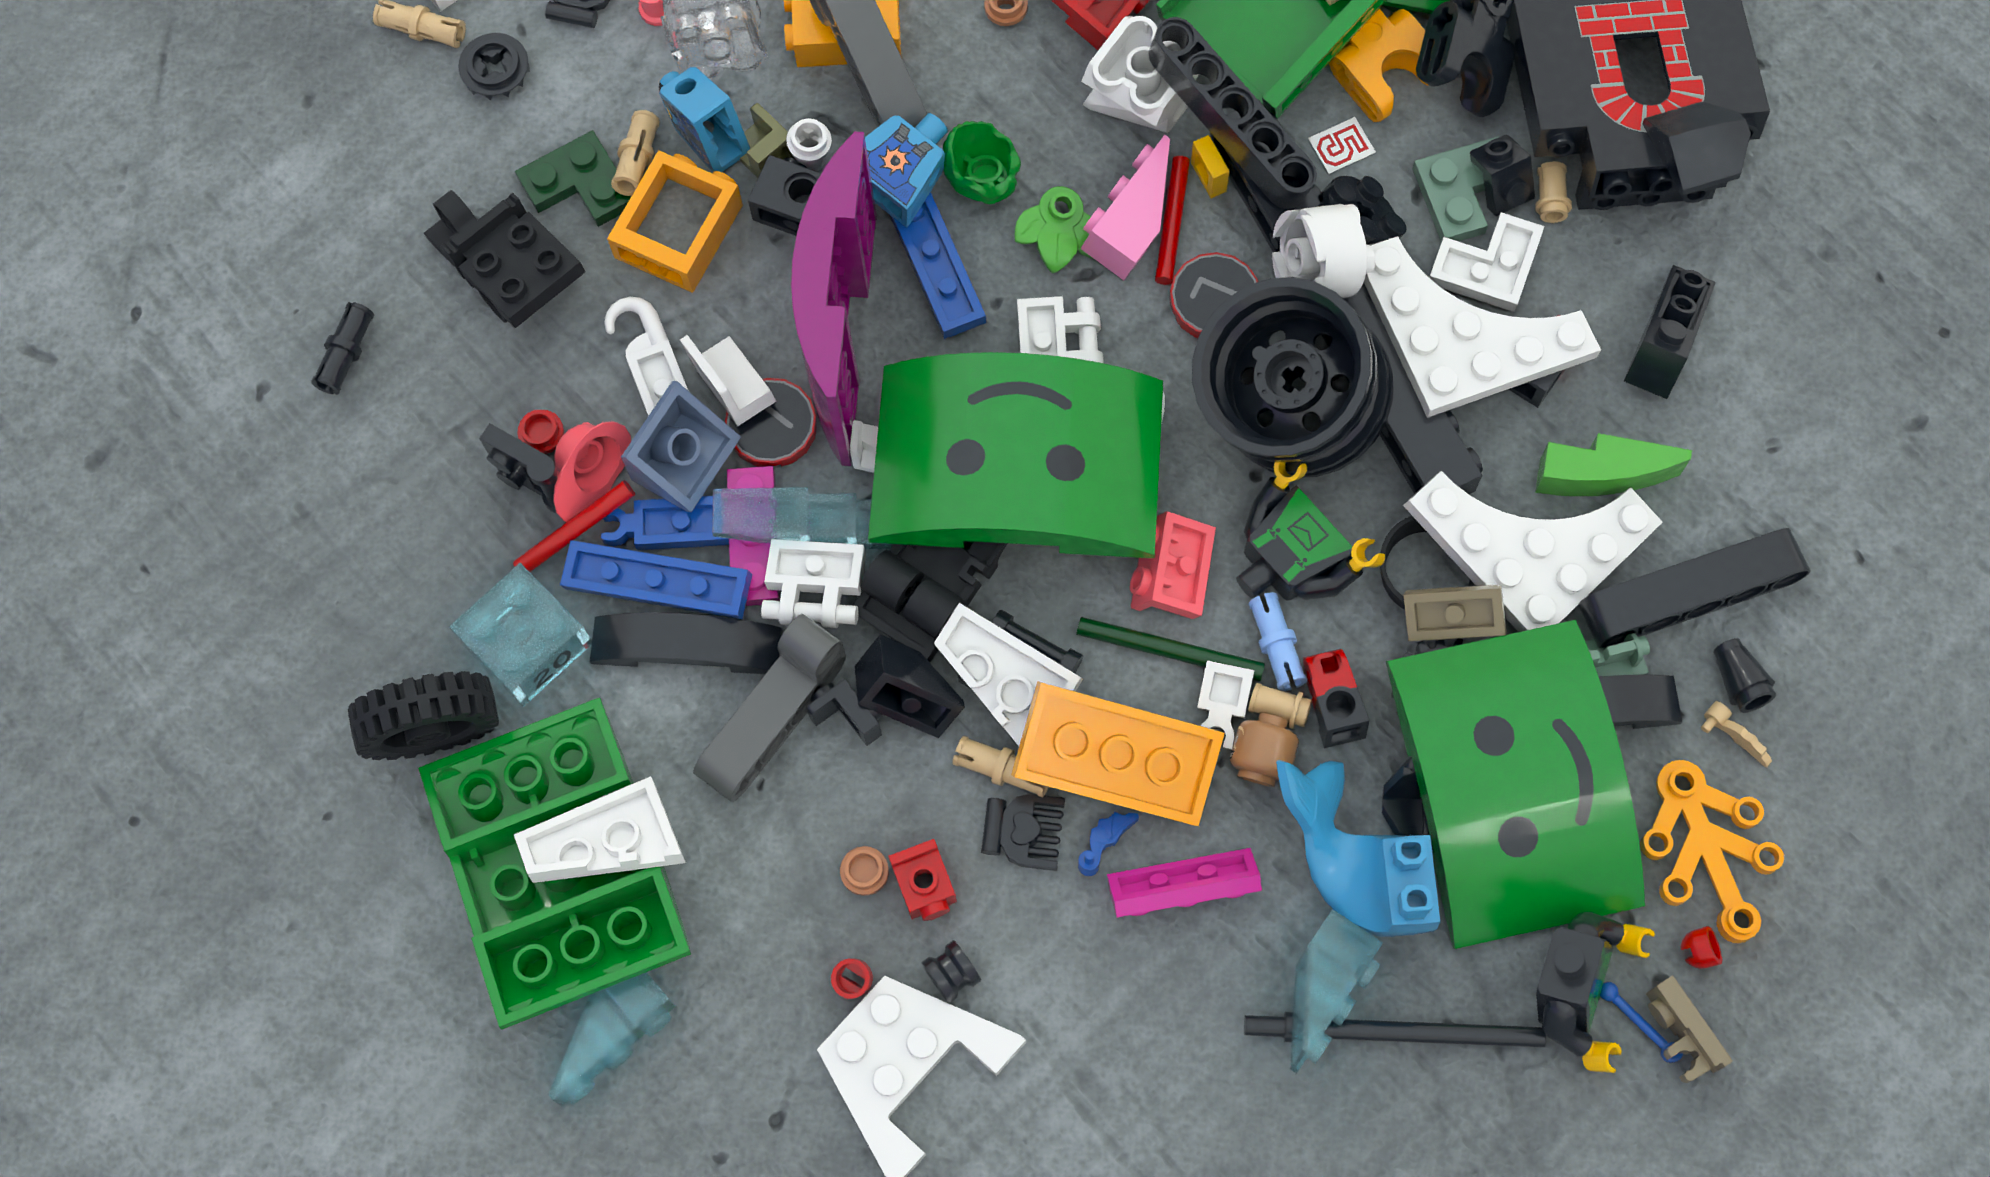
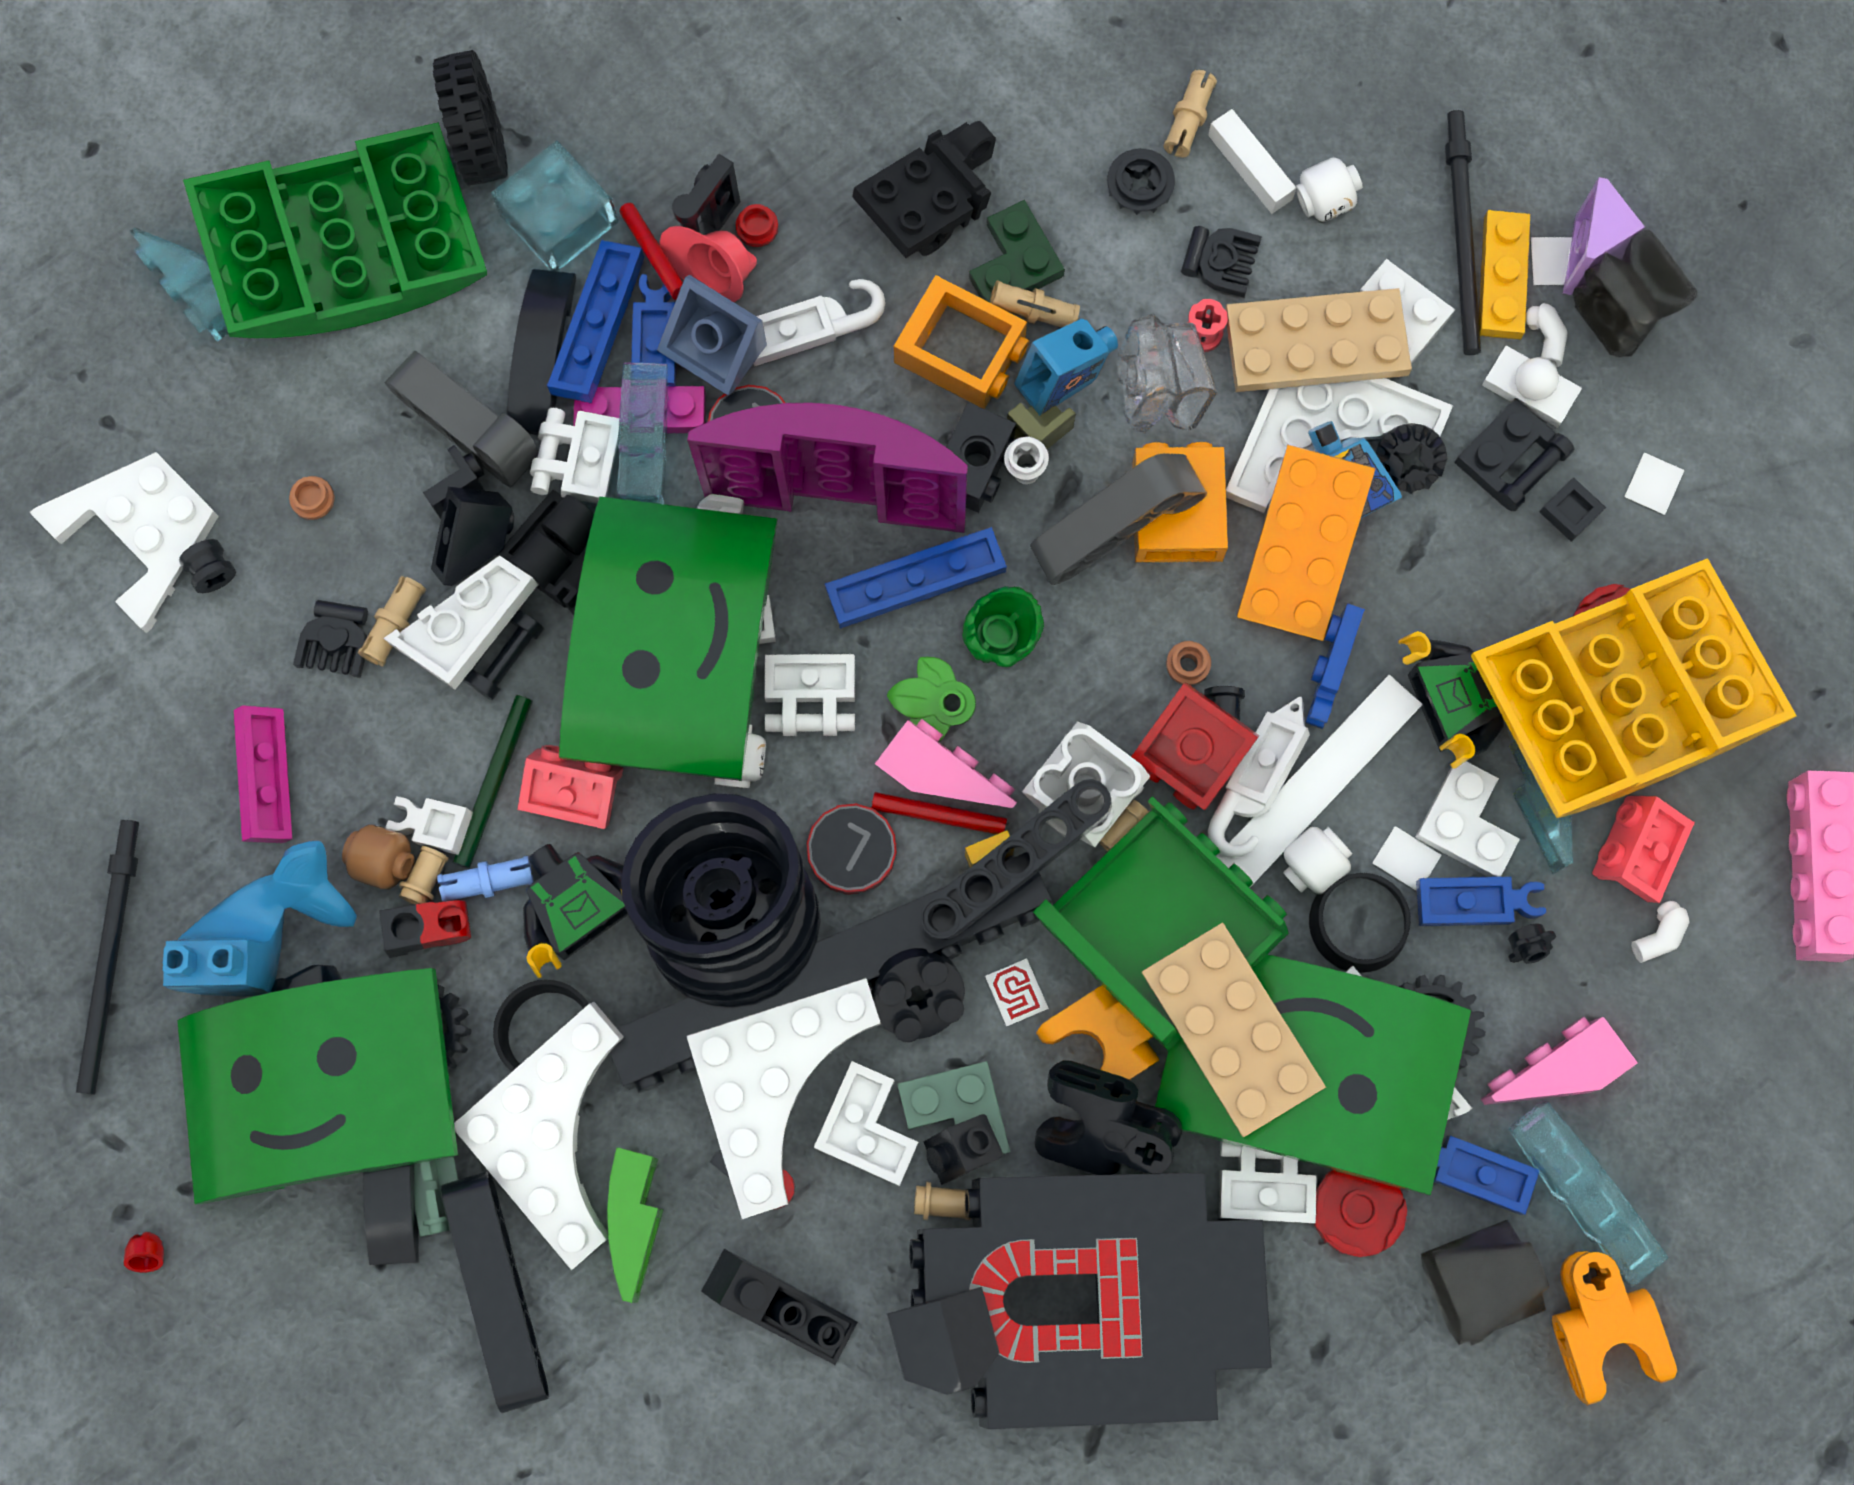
camera: 90 degrees right, 5 degrees up
(342, 348) = (851, 54): black pin -> none
(602, 837) = (347, 268): white wing -> none
(731, 378) = (790, 377): white panel -> none
(846, 987) = (213, 482): red hinge -> none
(905, 164) = (993, 541): torso -> none
(913, 862) = (304, 552): red brick -> none
(1104, 836) = (321, 711): blue piece -> none
(1117, 754) = (378, 716): light orange plate -> none
(1324, 247) = (851, 936): white brick -> none
(1324, 977) = (156, 895): clear light blue slope -> none
(1454, 612) = (477, 1041): dark tan plate -> none
(1574, 981) = (122, 1122): black torso -> none
(1610, 993) = (59, 1211): blue hinge -> none
(1676, 1011) = (58, 1230): dark tan plate -> none
(1708, 842) = (246, 1271): light orange plant -> none
(1718, 716) = (370, 1301): tan piece -> none
(1743, 676) = (403, 1329): black cone -> none

